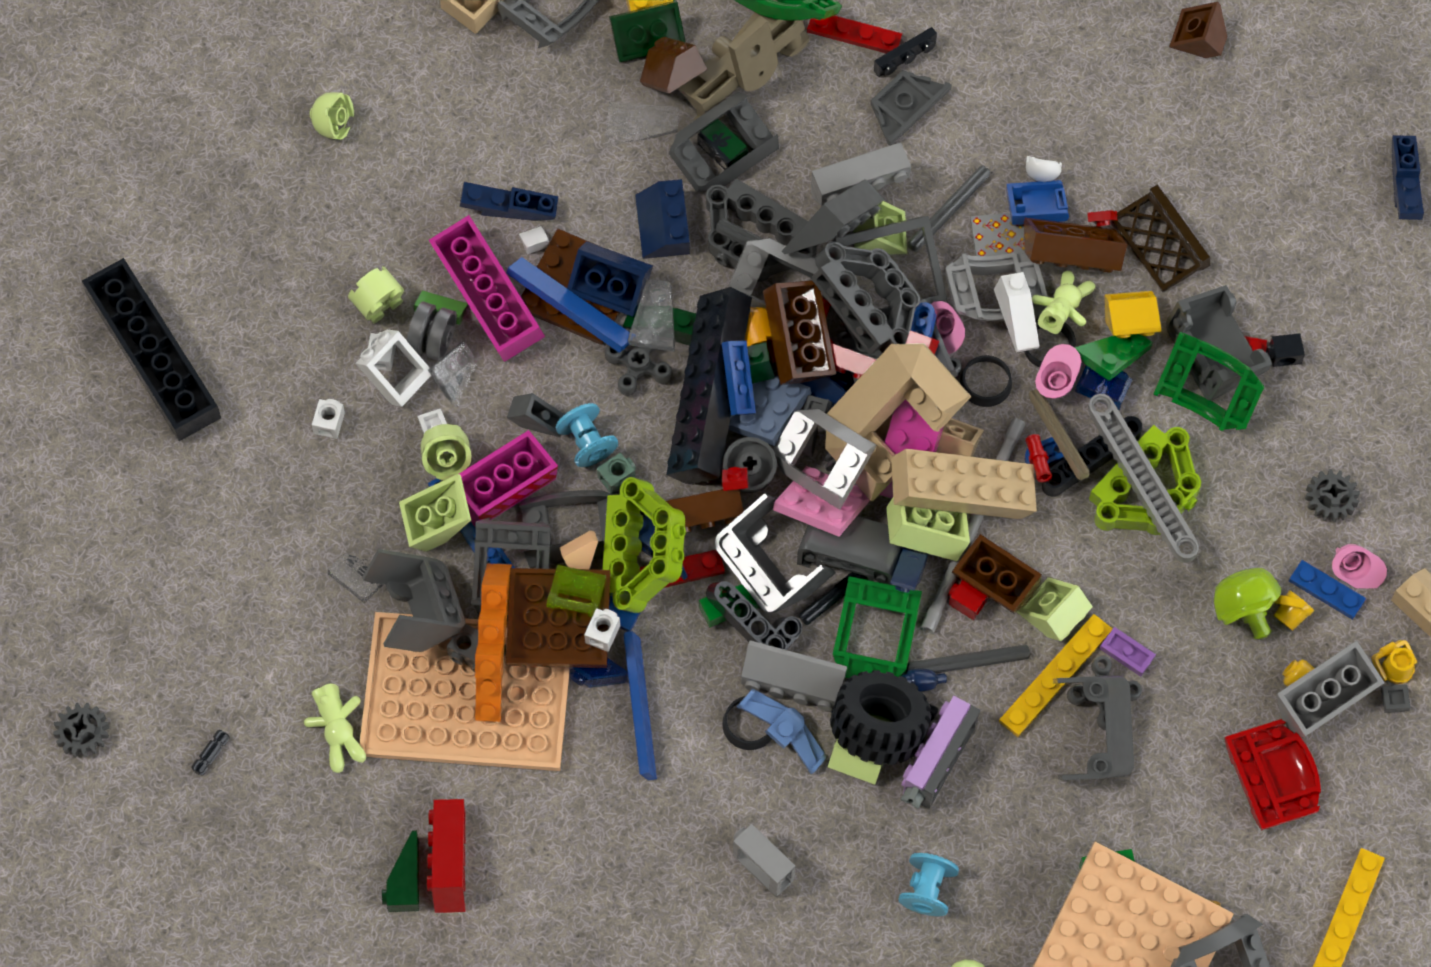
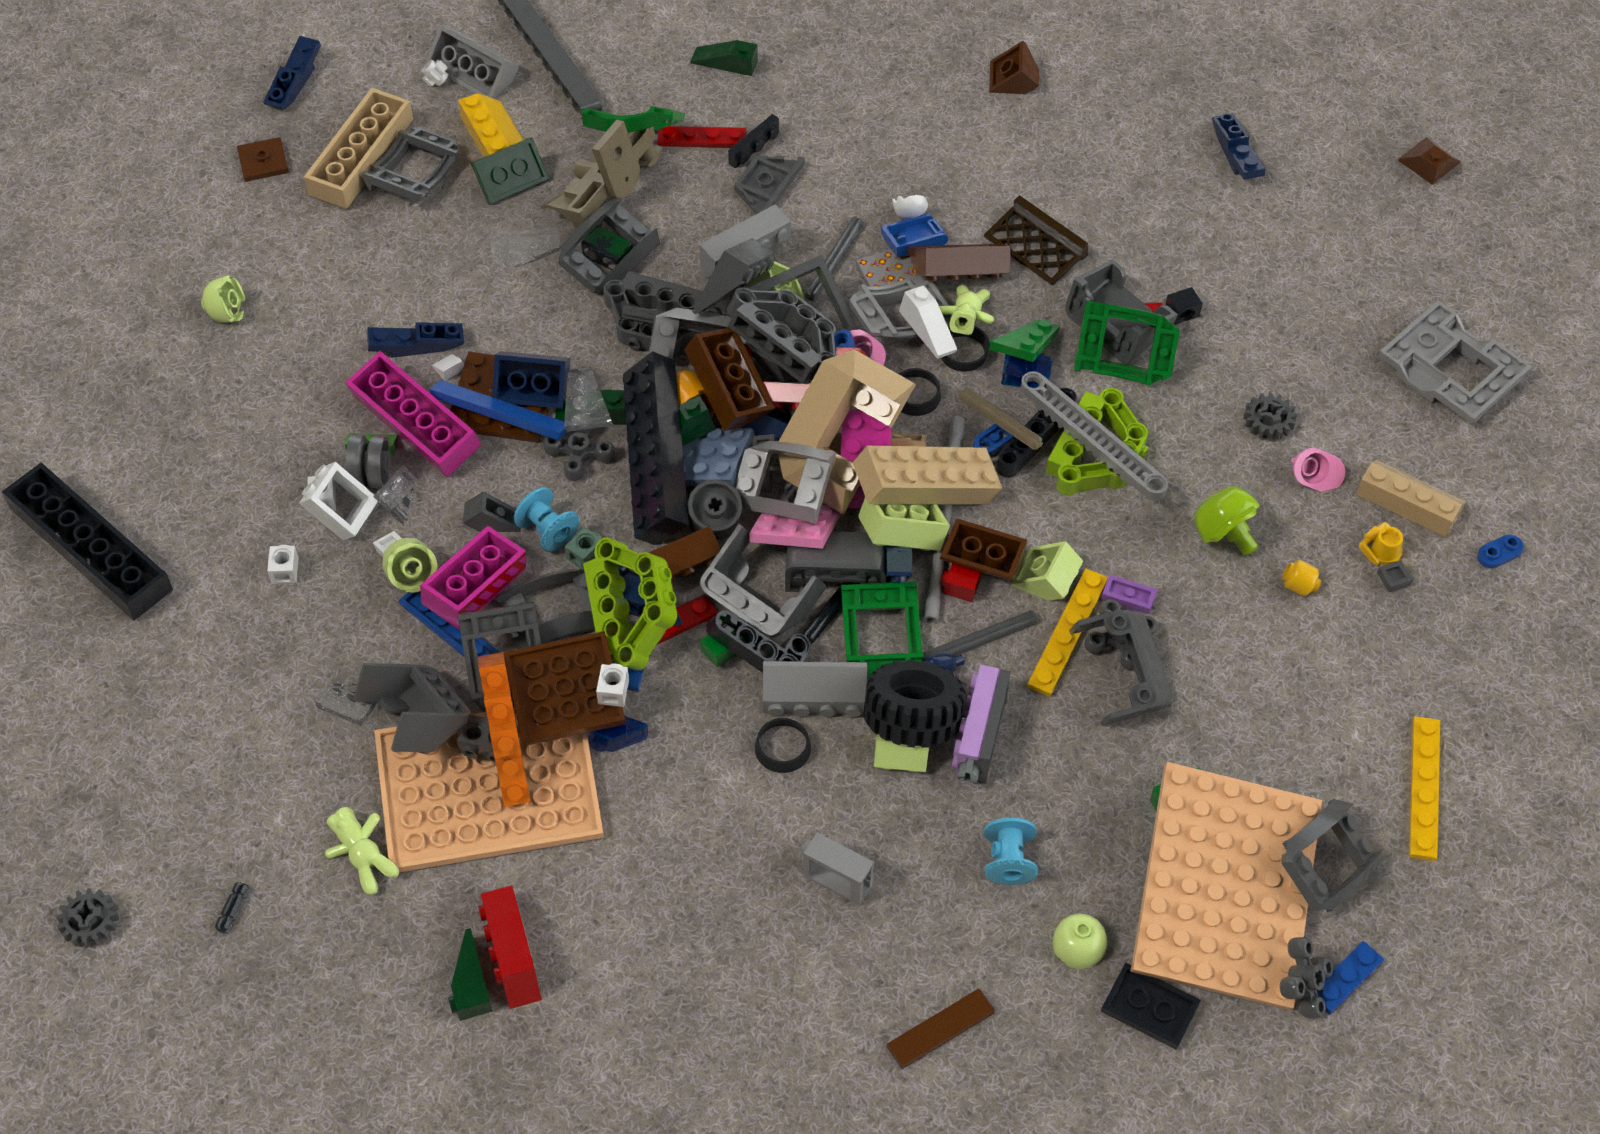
camera: 15 degrees left, 10 degrees down
(376, 294) = (305, 442): yellowish green brick -> none
(435, 514) = (414, 621): yellowish green slope -> none
(579, 584) = (576, 650): clear neon green plate -> none
(580, 551) = (569, 622): light nougat slope -> none
(640, 706) = (668, 755): blue tile -> none
(663, 220) = (569, 322): dark blue slope -> none
(671, 65) = (540, 187): reddish brown slope -> none
(735, 478) = (705, 519): red plate -> none
(738, 377) = (682, 430): blue plate -> none
(785, 727) = (820, 739): medium blue plate -> none
(1038, 458) = (989, 441): red pin -> none
(1058, 371) = (982, 365): bright pink piece -> none
(1102, 218) = (978, 233): red plate -> none
(1132, 314) = (1033, 303): yellow slope -> none
(1275, 773) = (1308, 668): red slope -> none
(1292, 610) = (1271, 520): yellow piece -> none
(1327, 589) = (1295, 498): blue plate -> none
(1328, 690) = (1331, 581): light grey slope -> none

